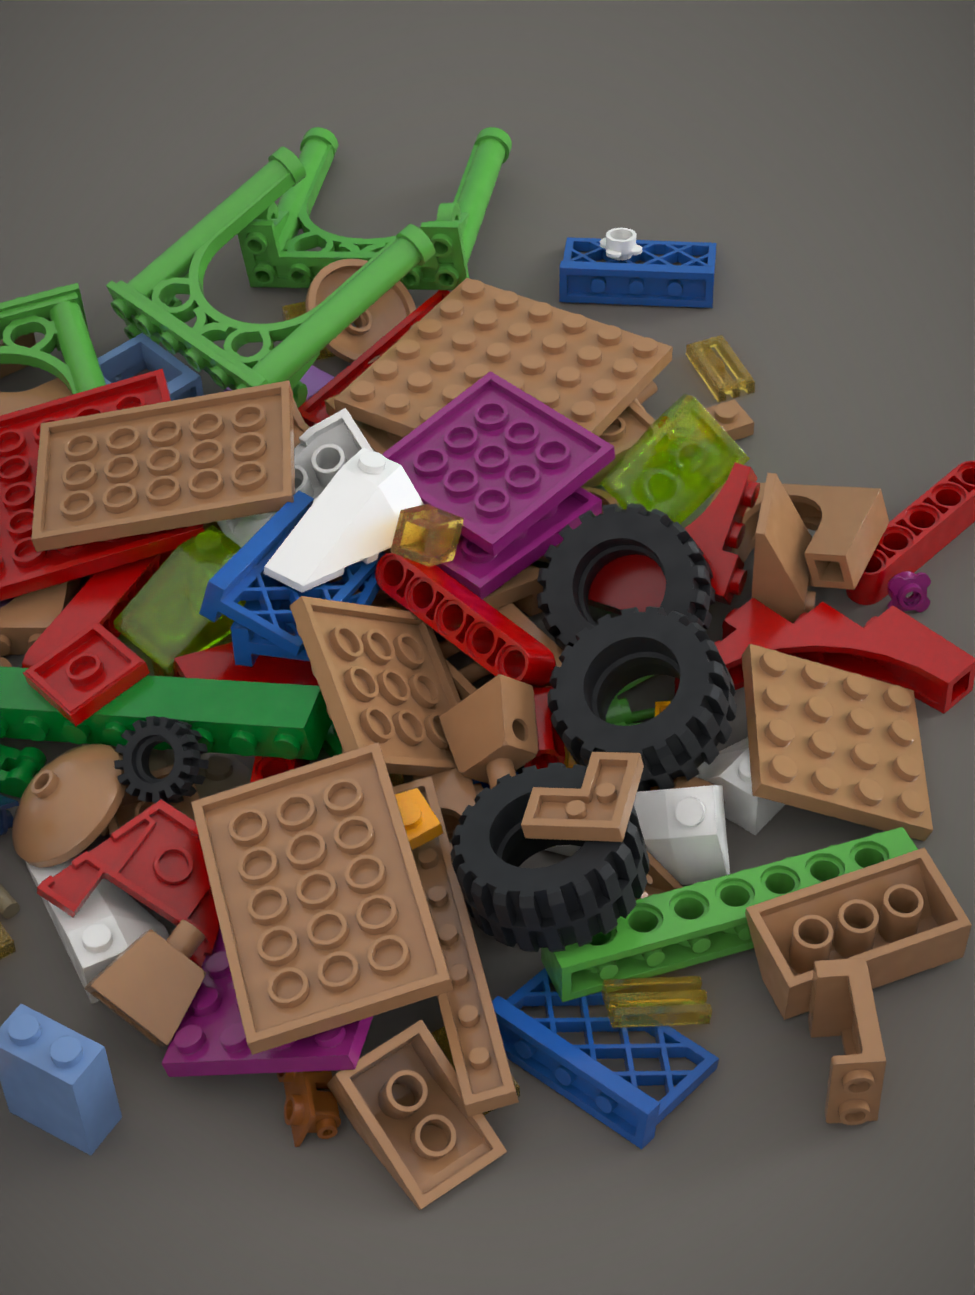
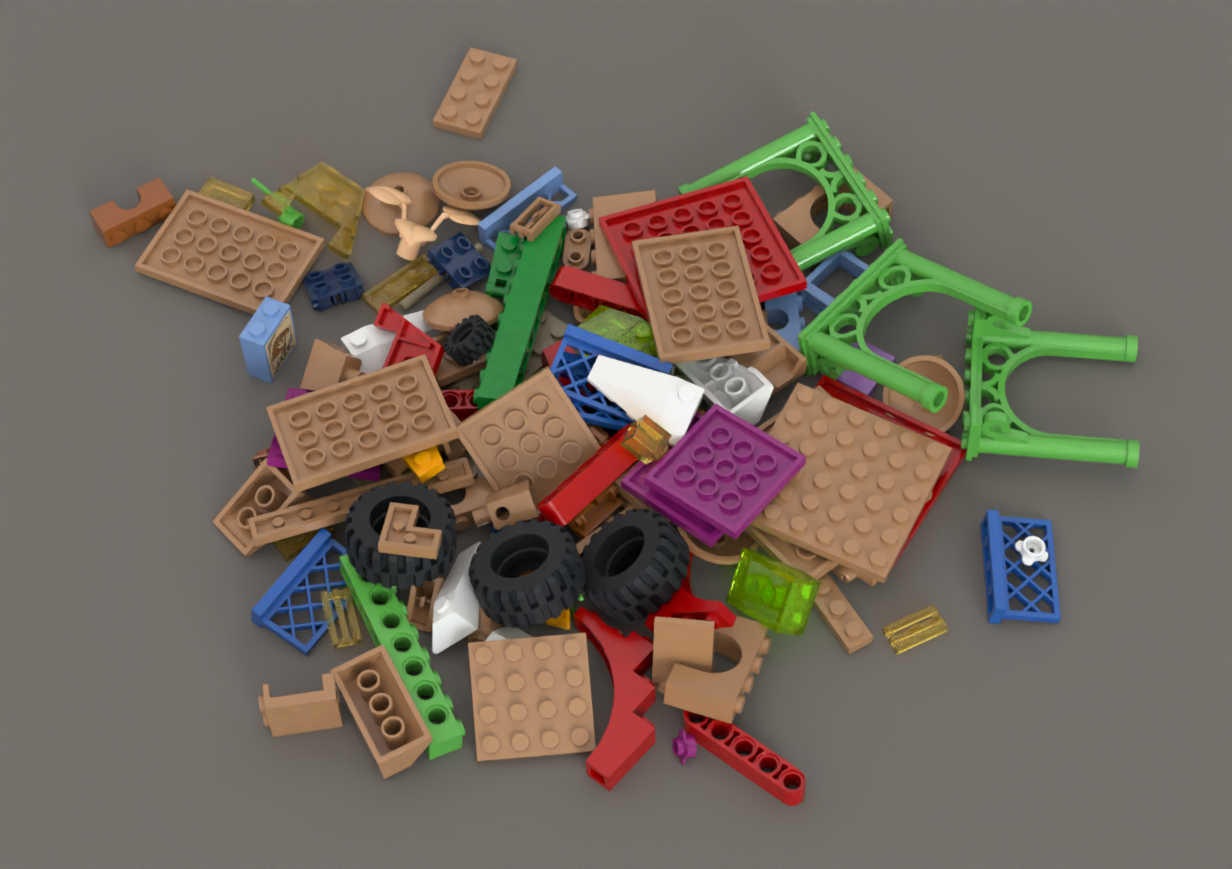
camera: 85 degrees right, 10 degrees up
(86, 673) = (535, 292): red tile -> none

